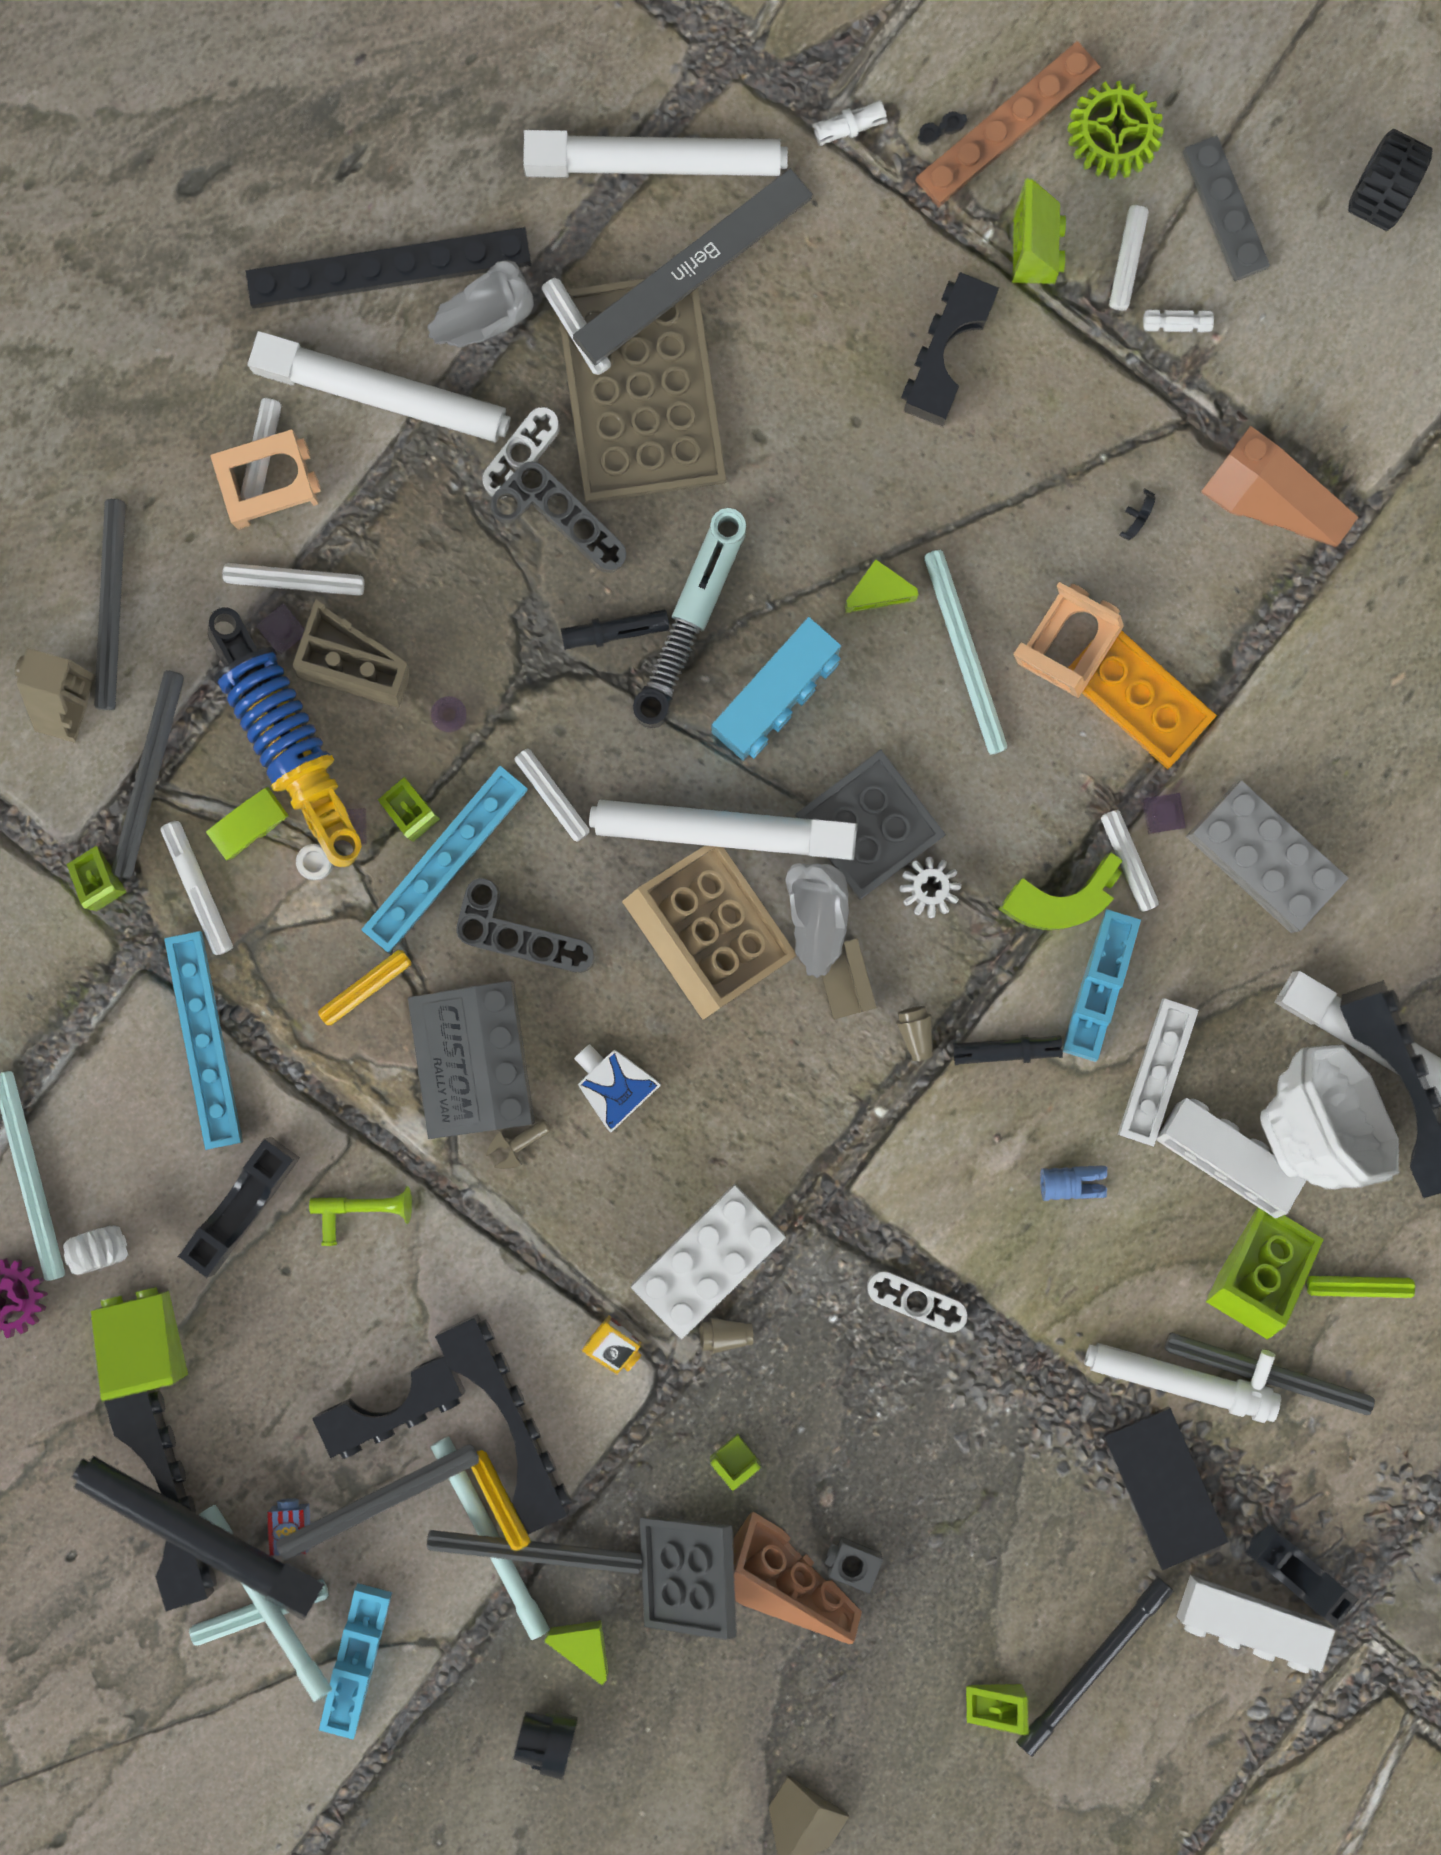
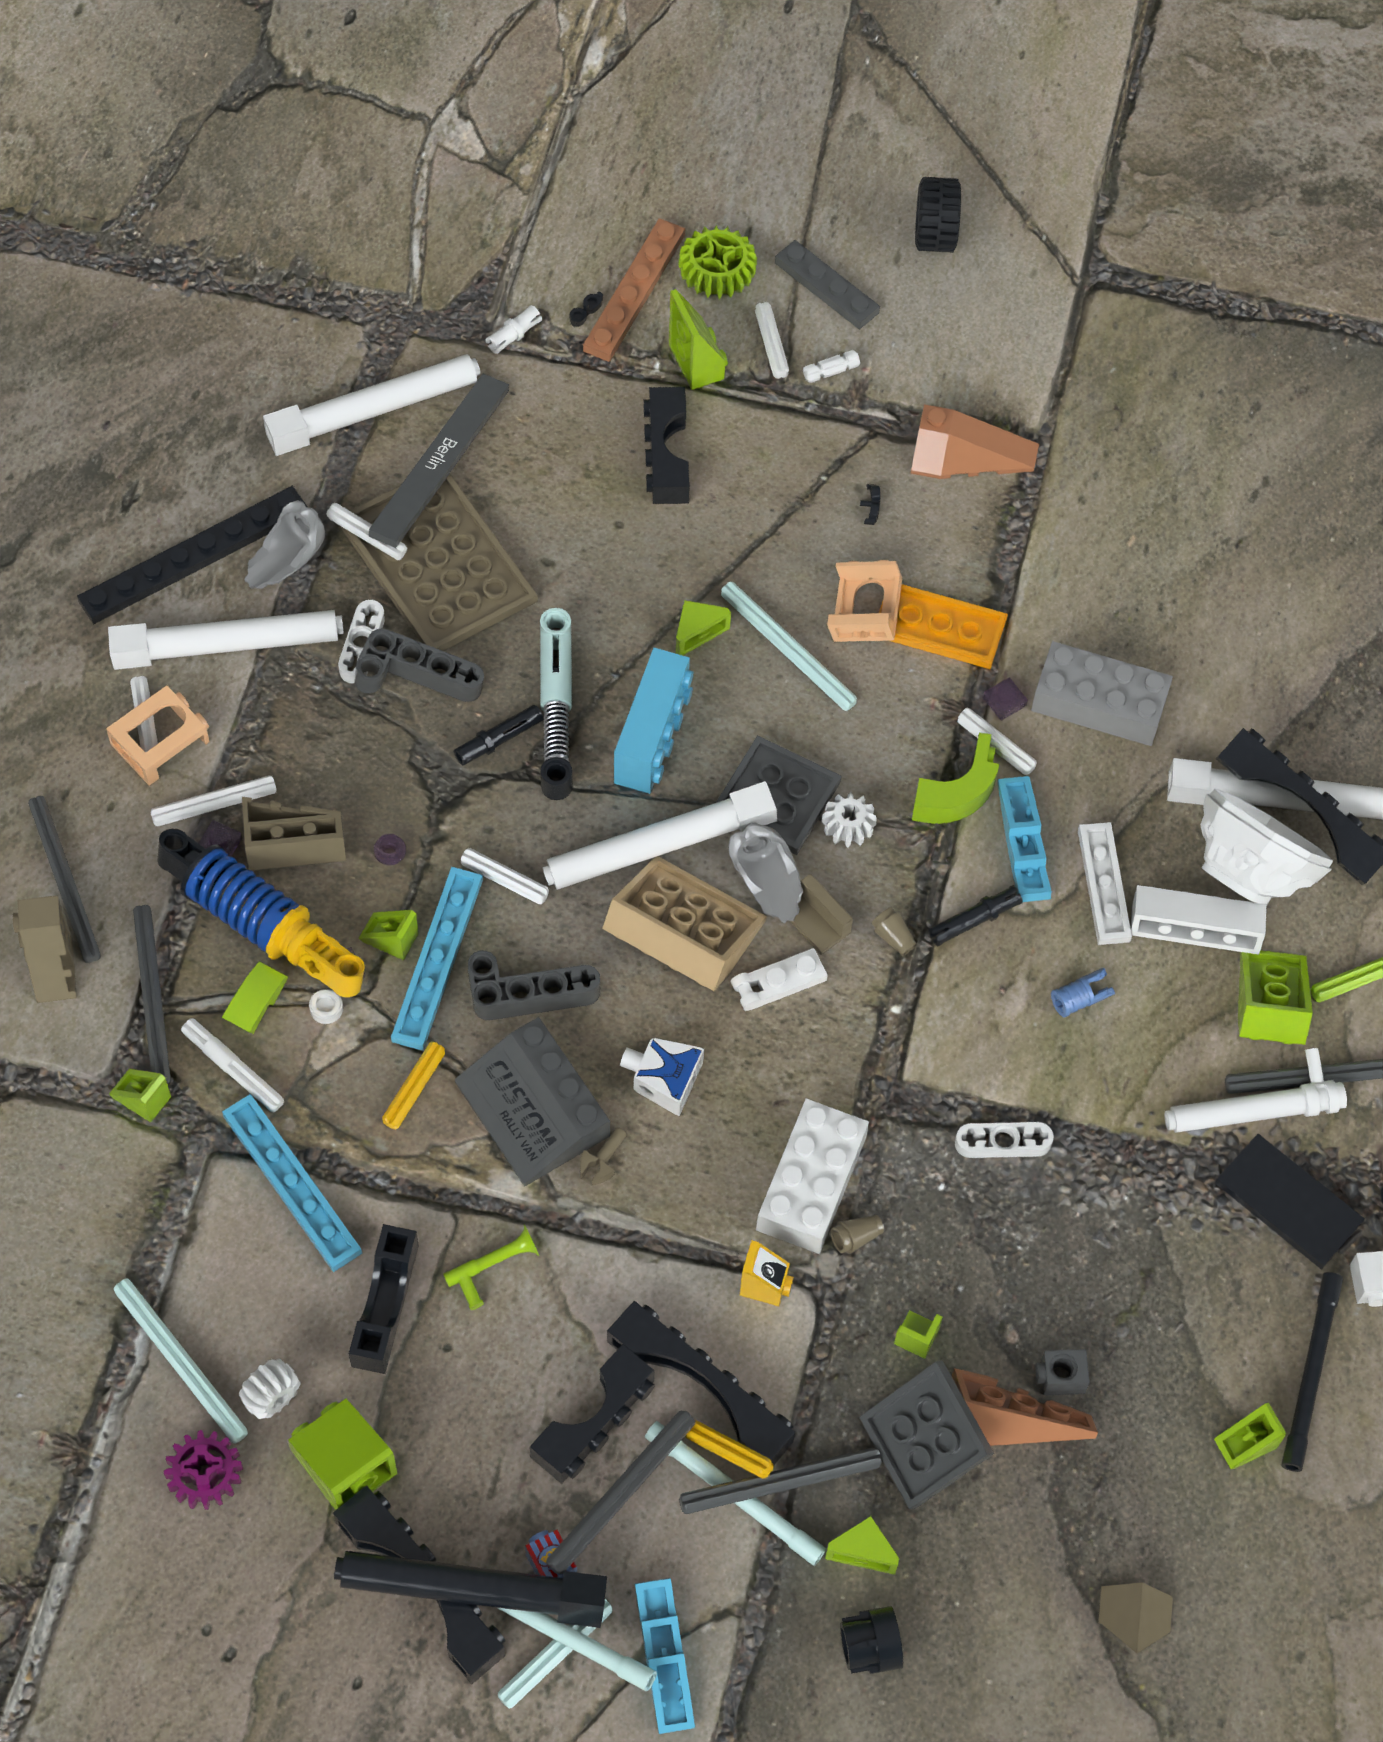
camera: 30 degrees left, 25 degrees down
(778, 1031) = (779, 979): none -> white plate

